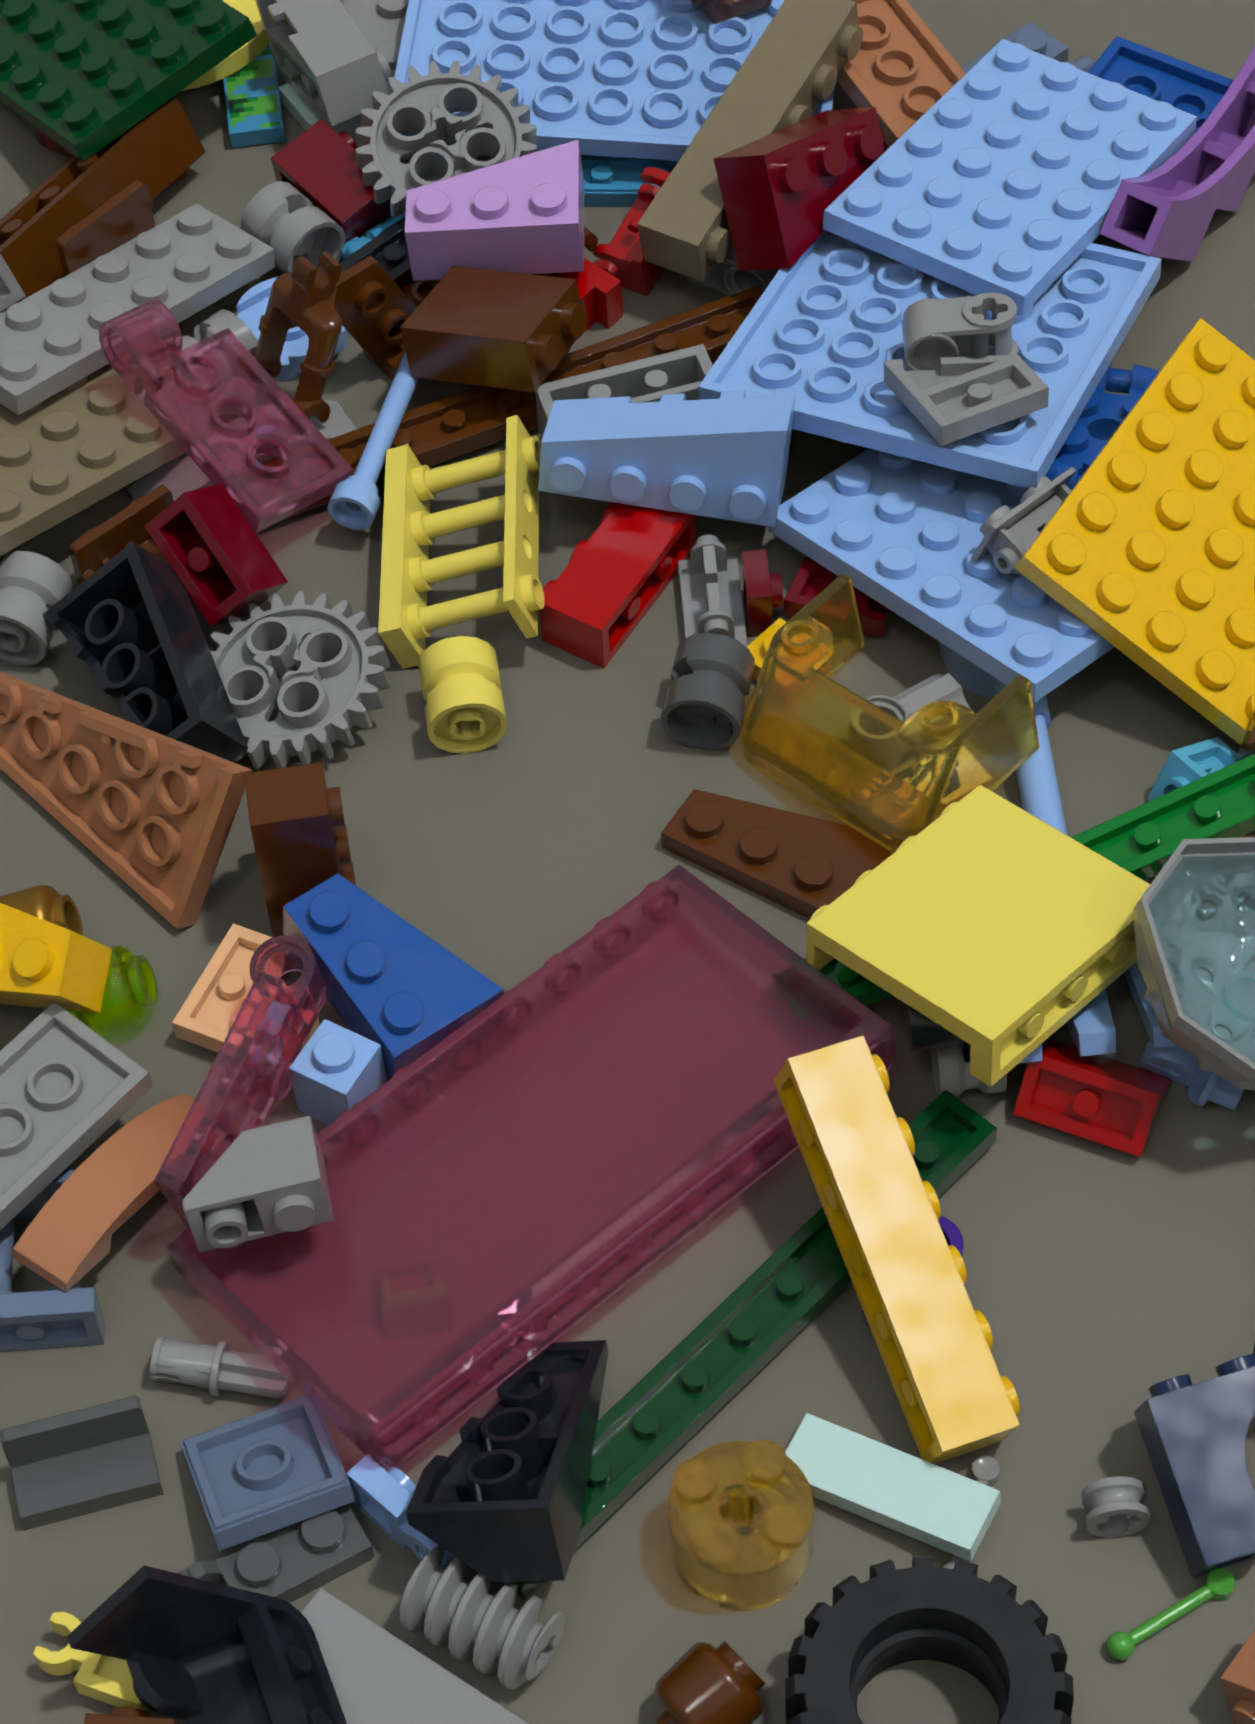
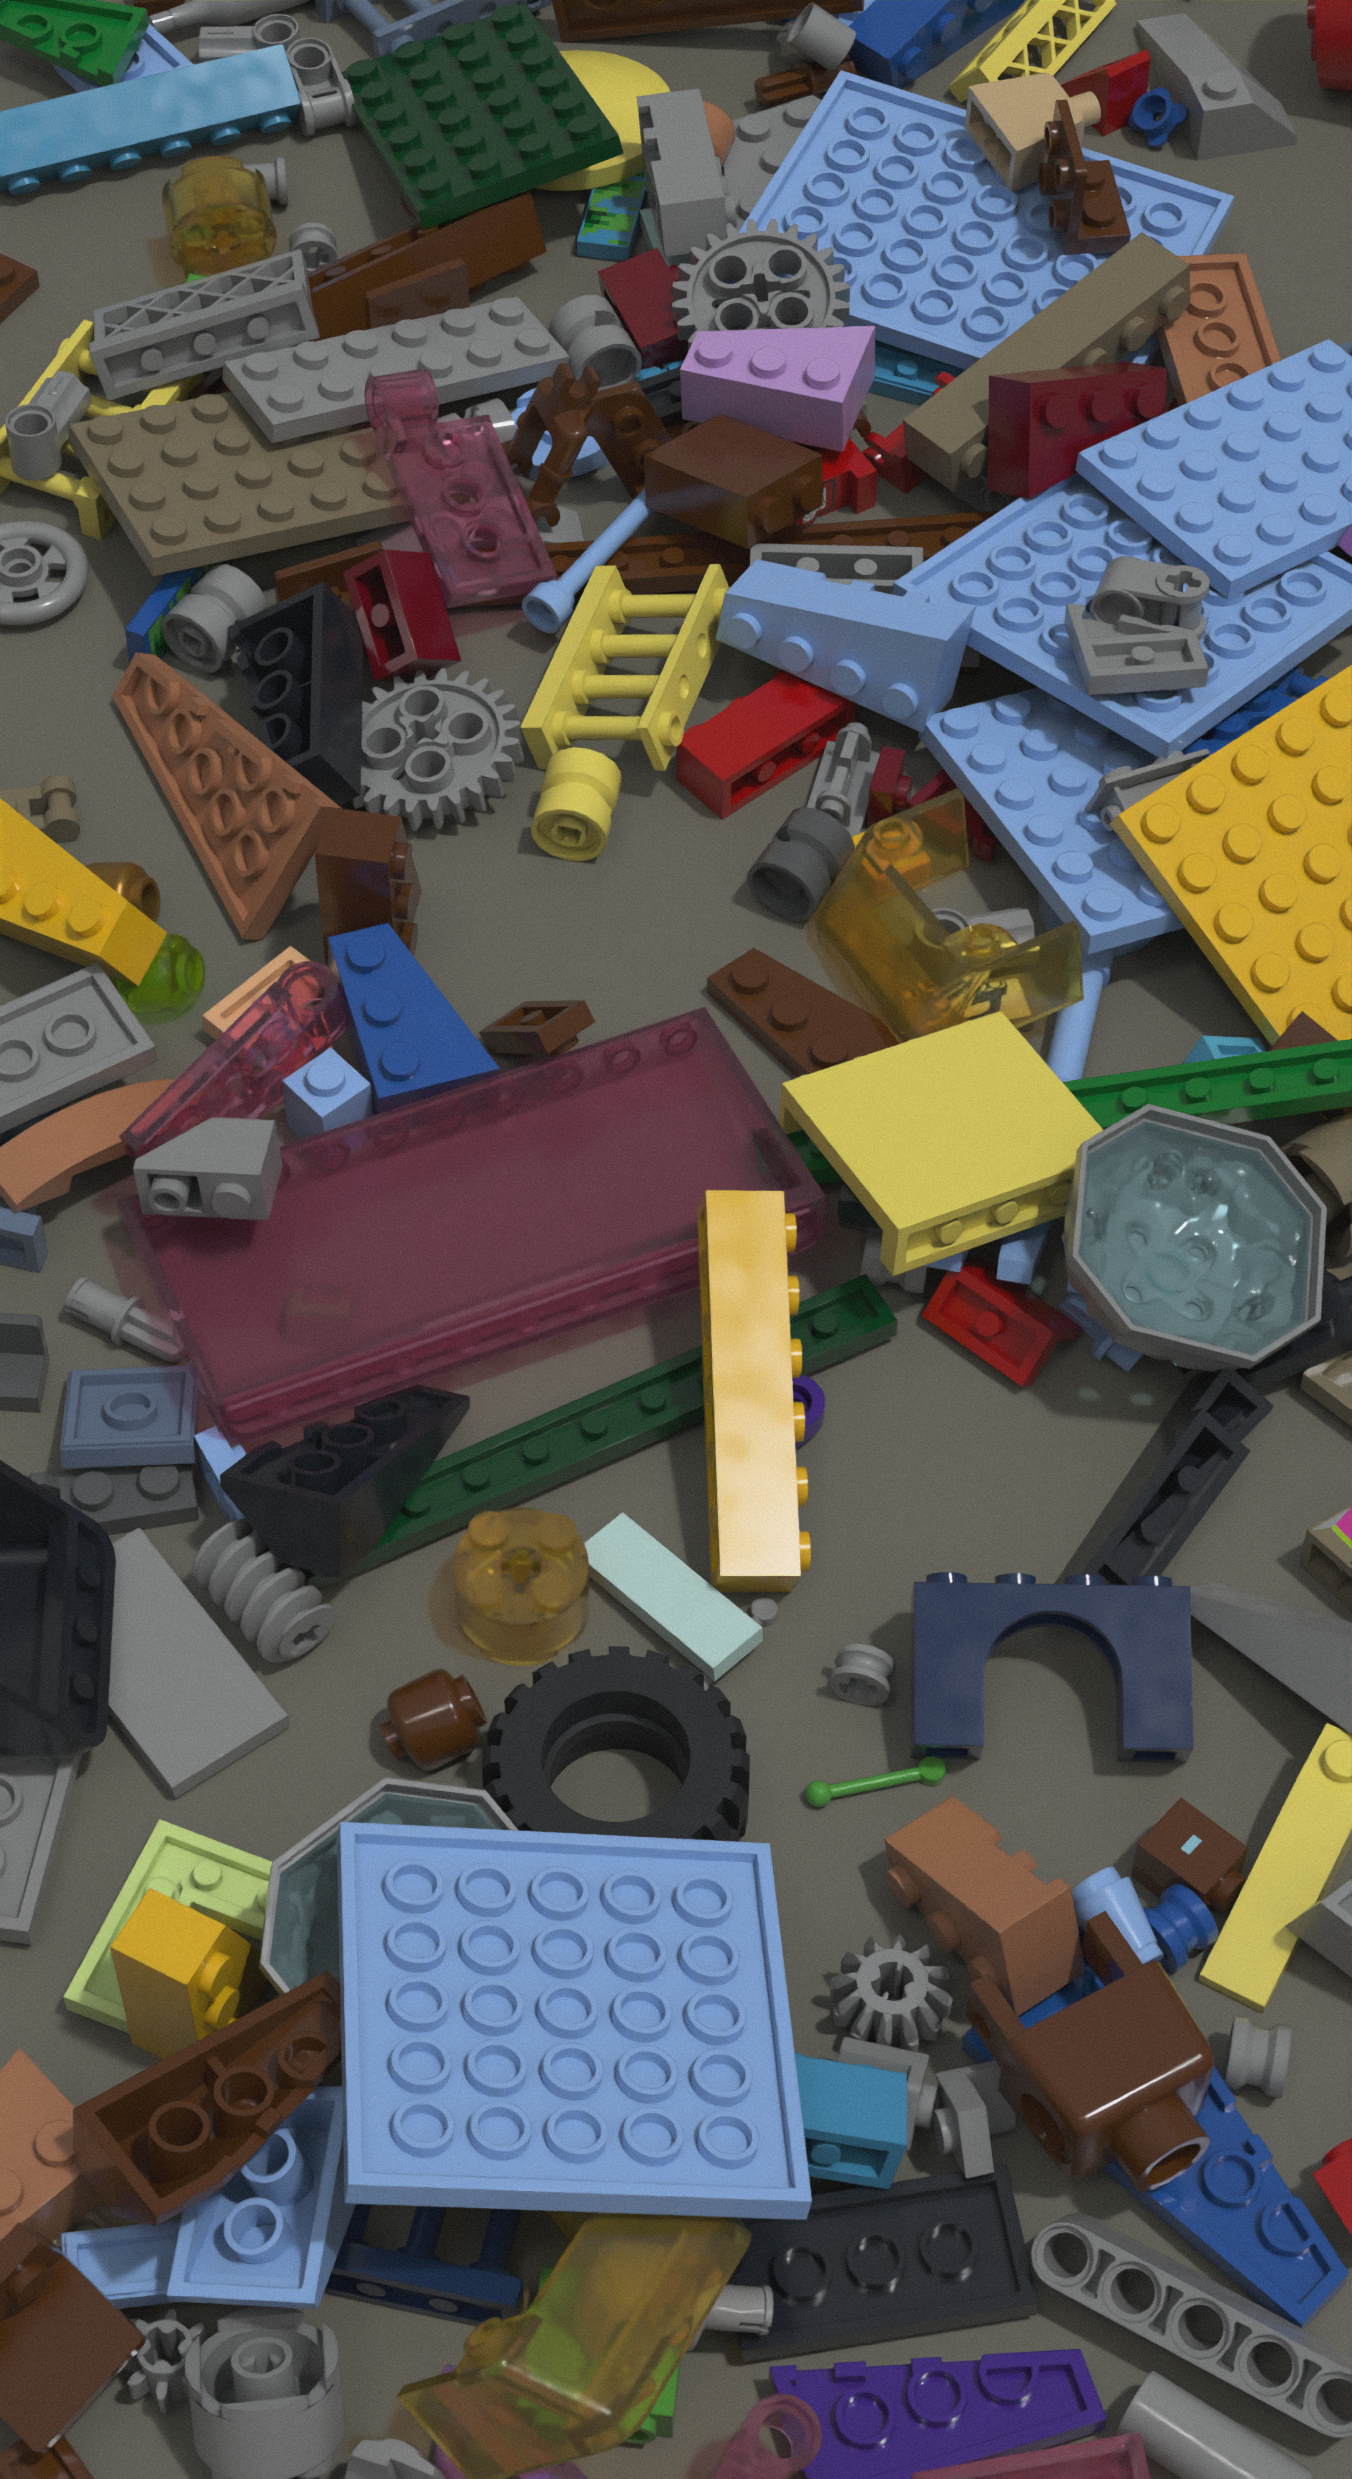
camera: 15 degrees right, 0 degrees up
(521, 934) = (538, 1028): none -> reddish brown plate

